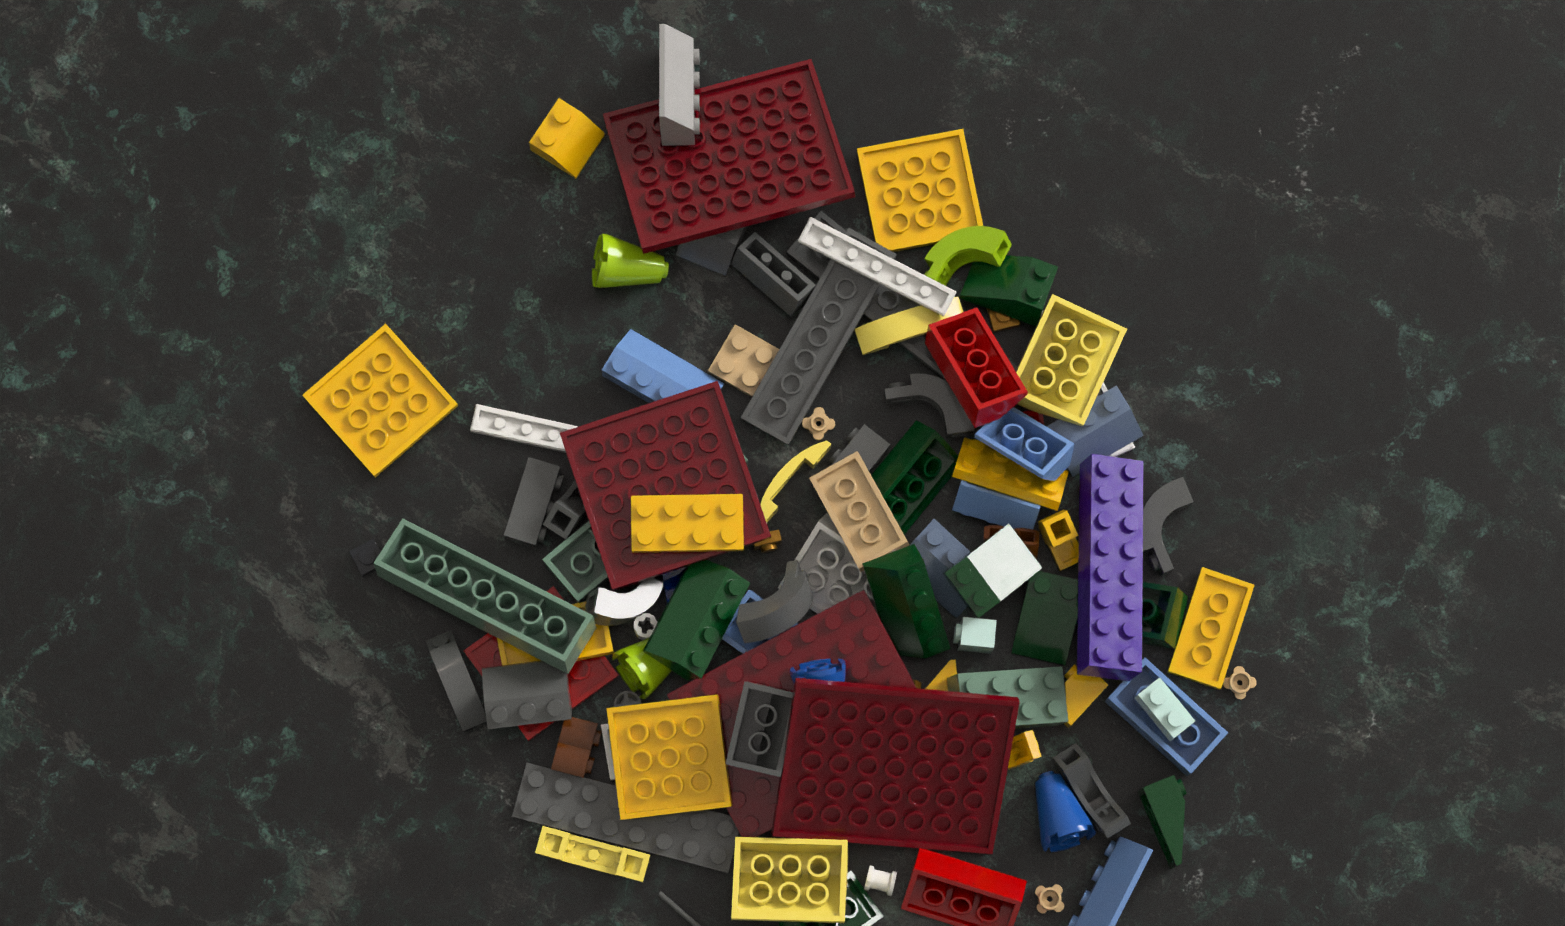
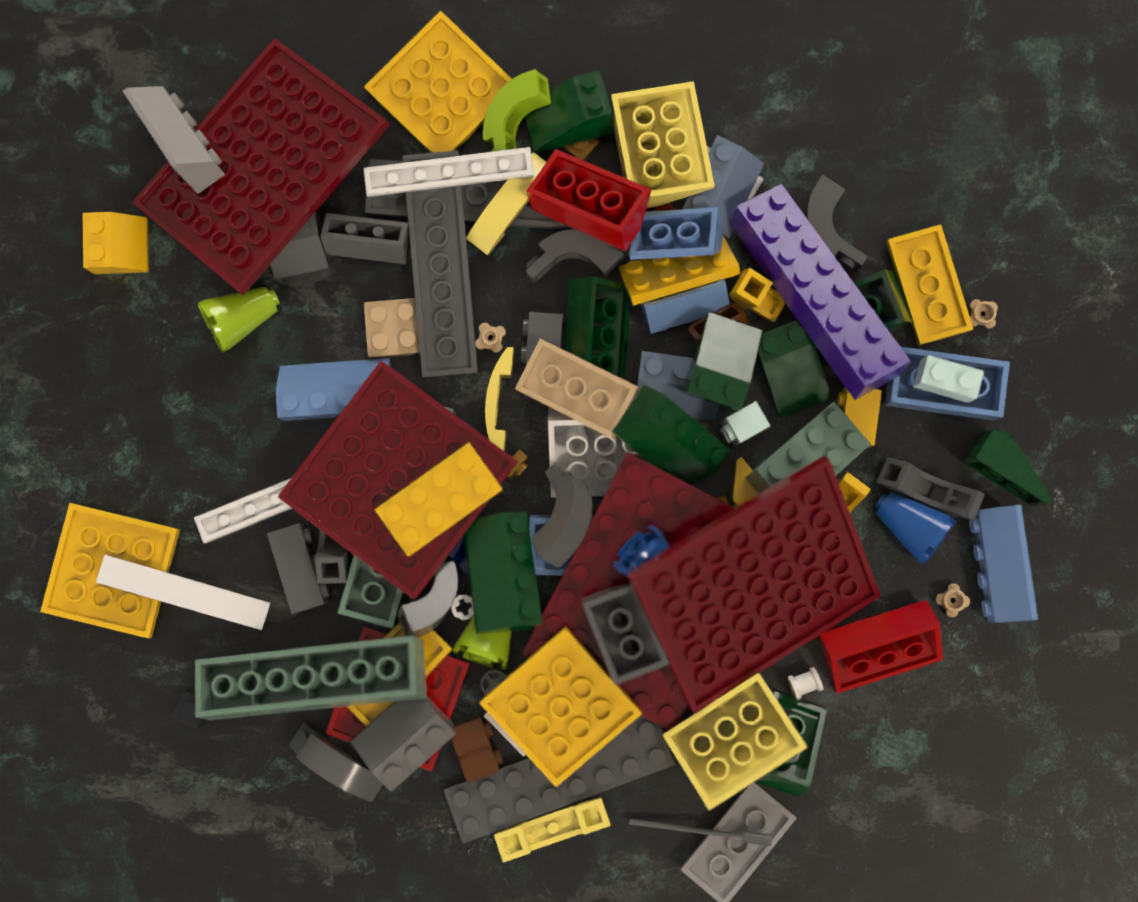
camera: 25 degrees left, 5 degrees up
(428, 458) = (183, 592): none -> white tile

